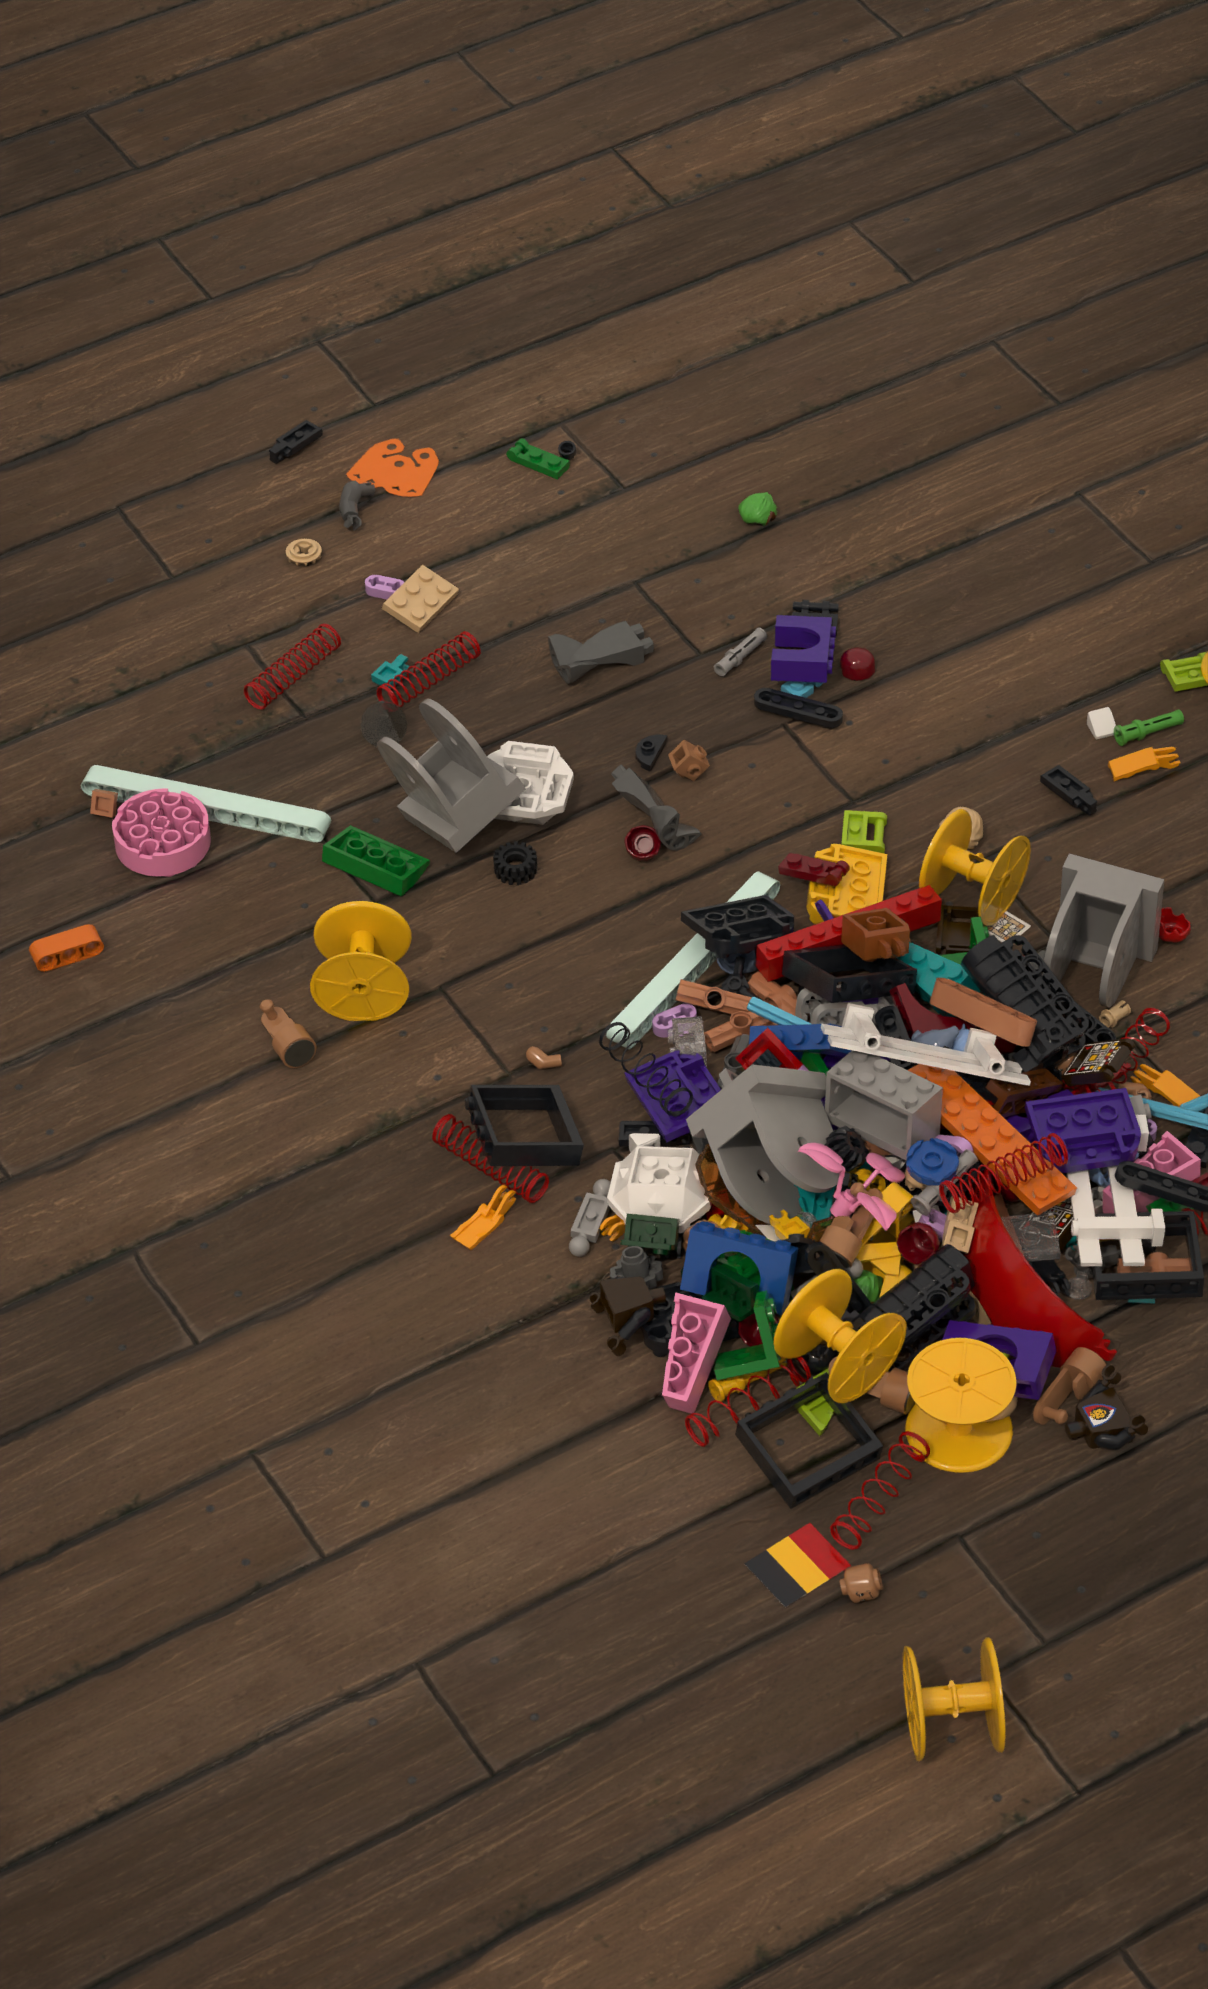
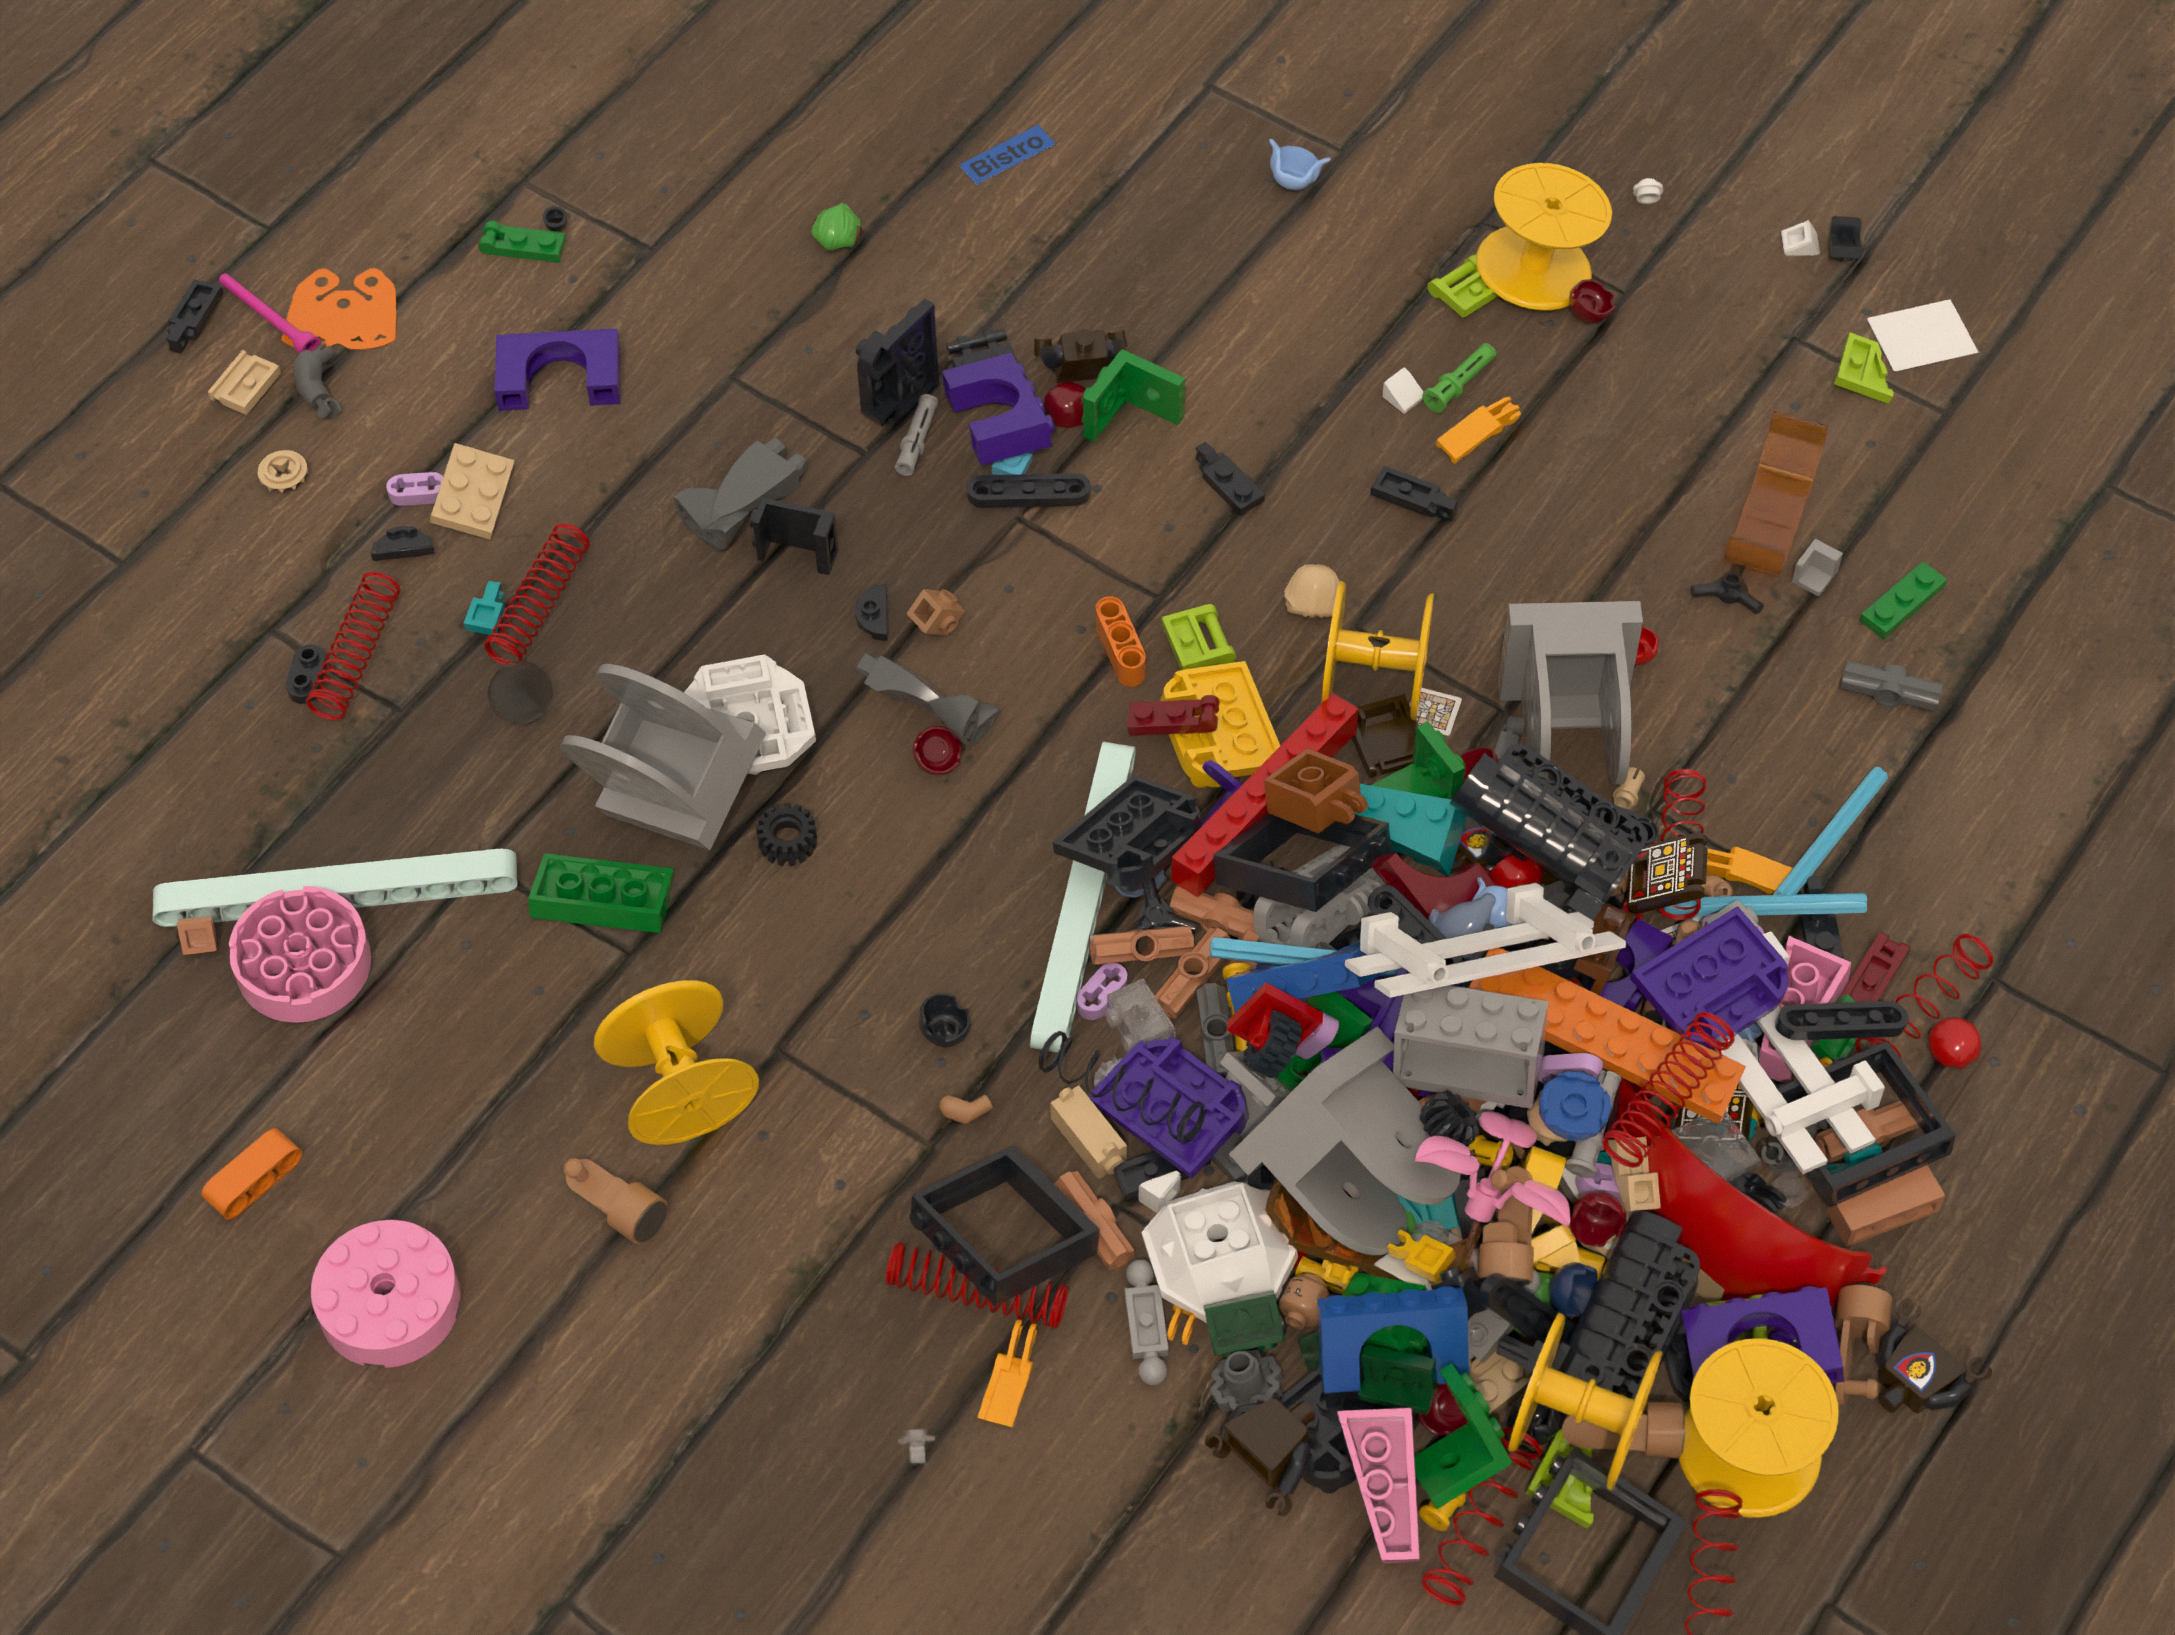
camera: 25 degrees left, 10 degrees up
(112, 1039) = (418, 1287): none -> bright pink brick
(253, 671) = (305, 671): none -> black plate
(306, 491) = (244, 382): none -> tan plate
(357, 475) = (301, 340): none -> dark pink piece
(357, 616) = (402, 542): none -> black plate
(401, 1233) = (917, 1439): none -> clear plate
(499, 526) = (523, 354): none -> dark purple arch
(556, 1001) = (943, 1020): none -> black hair
(593, 1152) = (1112, 1244): none -> nougat piece
(615, 1094) = (1088, 1131): none -> tan brick
(621, 680) = (795, 527): none -> black panel
(742, 598) = (898, 366): none -> black plate
(807, 817) = (1126, 656): none -> orange beam
(880, 1280) = (1572, 1288): none -> dark blue hair
(884, 634) = (1080, 353): none -> dark brown torso
(897, 658) = (1135, 382): none -> green bracket
(907, 498) = (1007, 154): none -> blue sticker
(943, 743) = (1228, 480): none -> black hinge
(983, 1012) = (1509, 859): nougat beam -> none
(1105, 559) = (1294, 166): none -> light blue hair
(1142, 1317) = (1887, 1206): none -> nougat brick

